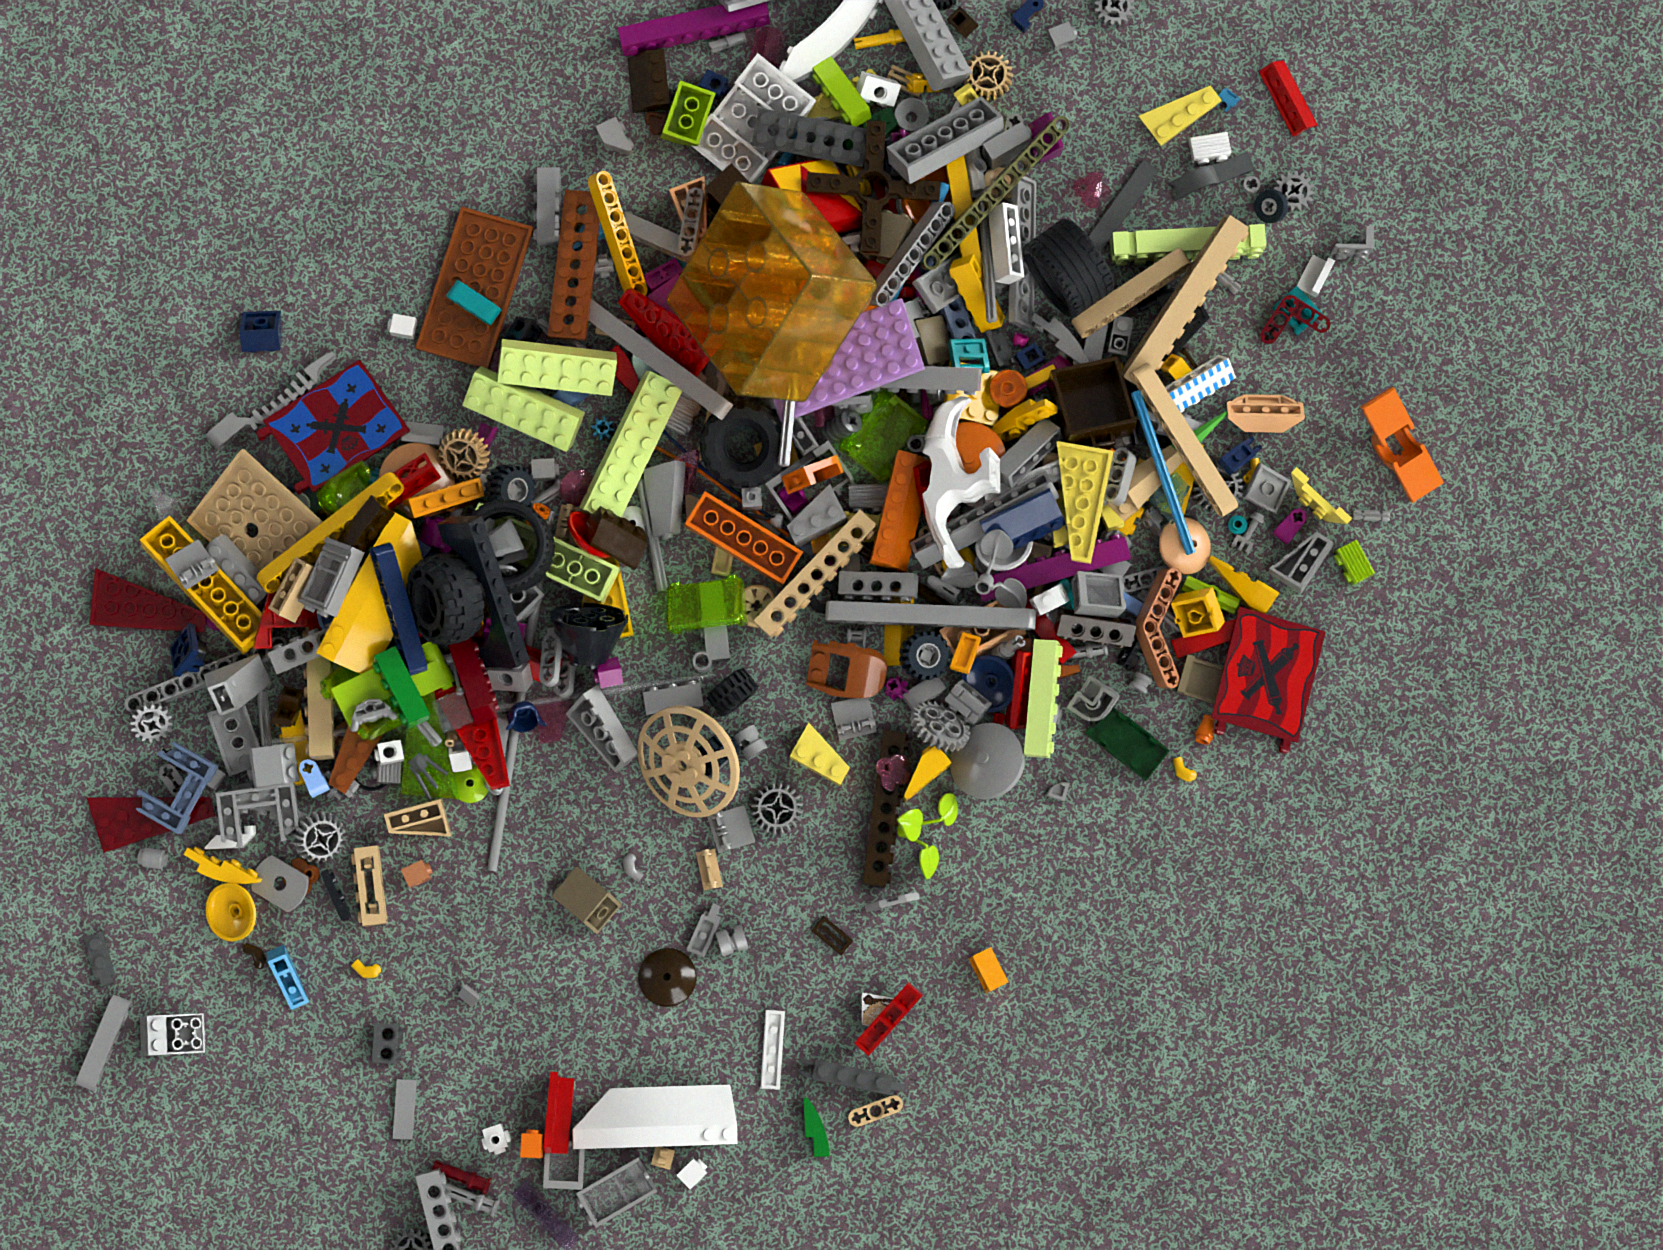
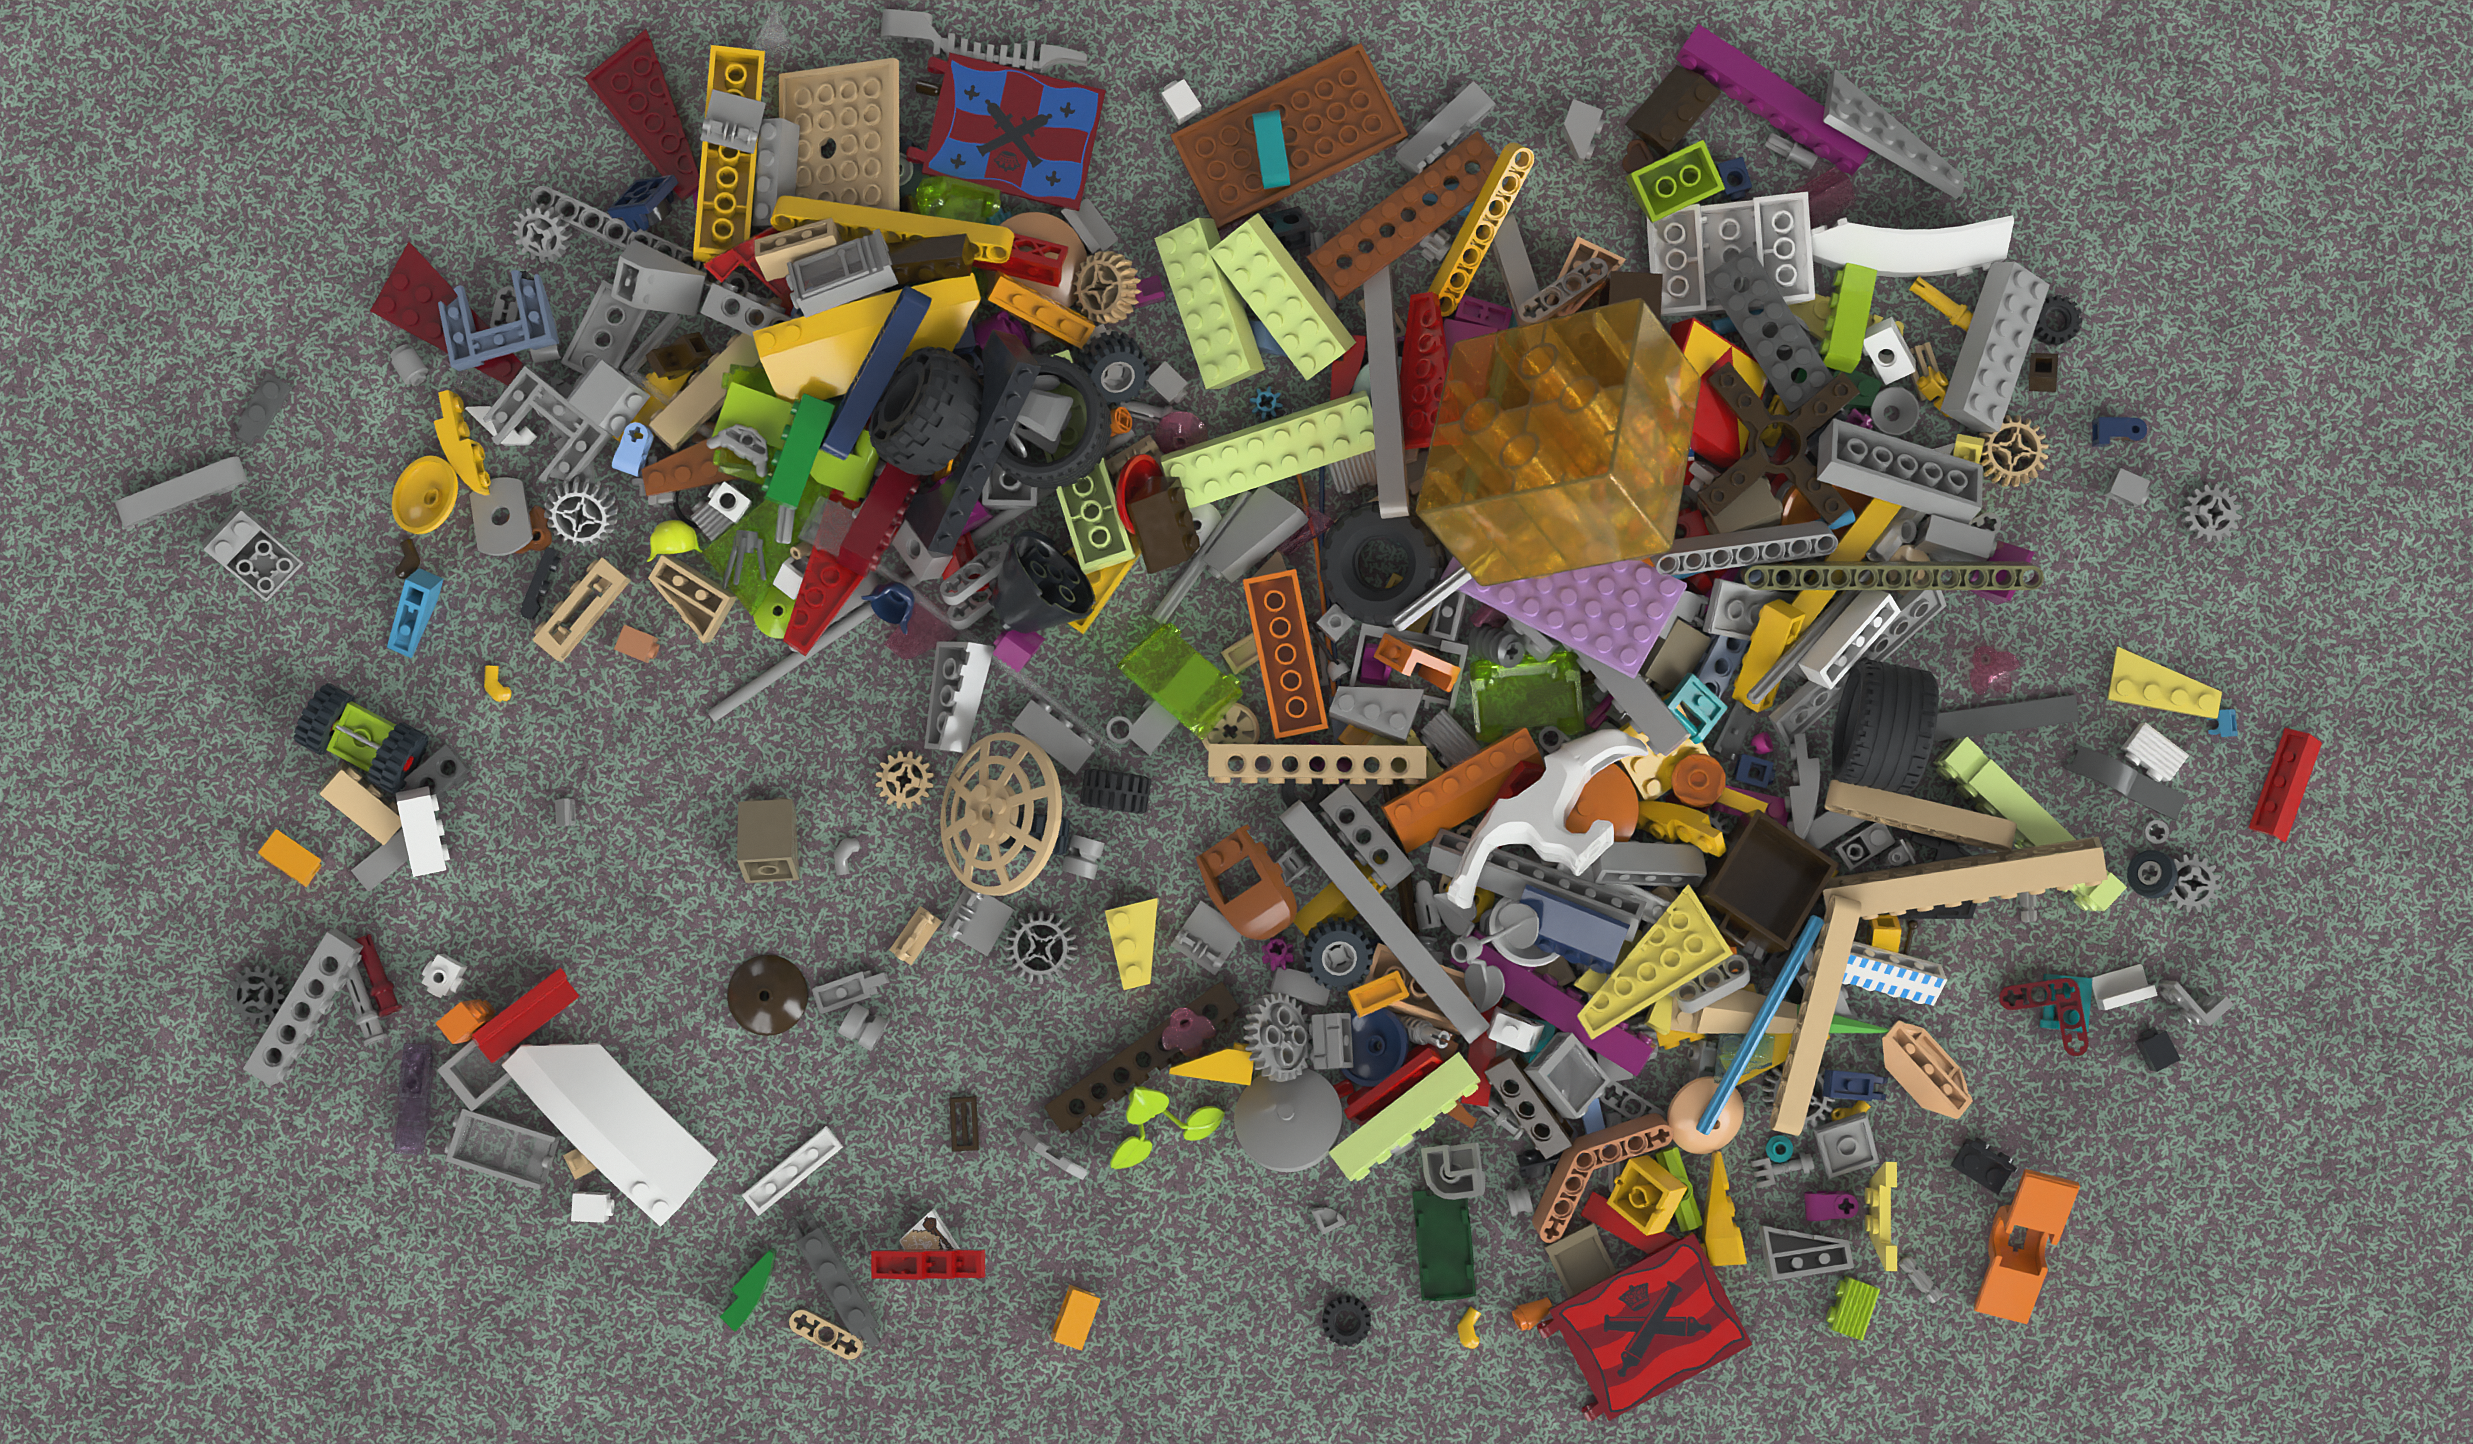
camera: 50 degrees right, 5 degrees up
(270, 449) = (928, 88): none -> dark brown arm
(328, 1064) = (360, 737): none -> black plate
(355, 1164) = (290, 858): none -> light orange hinge
(363, 1096) = (362, 803): none -> tan wedge
(378, 802) = (673, 538): none -> neon yellow hair
(408, 1077) = (422, 831): none -> white brick
(611, 806) = (907, 767): none -> tan gear
(1129, 822) = (1346, 1337): none -> black tyre
(1142, 321) = (1898, 854): none -> light grey hinge
(1342, 428) = (1984, 1166): none -> black bracket
(1363, 286) = (2157, 1049): none -> black brick

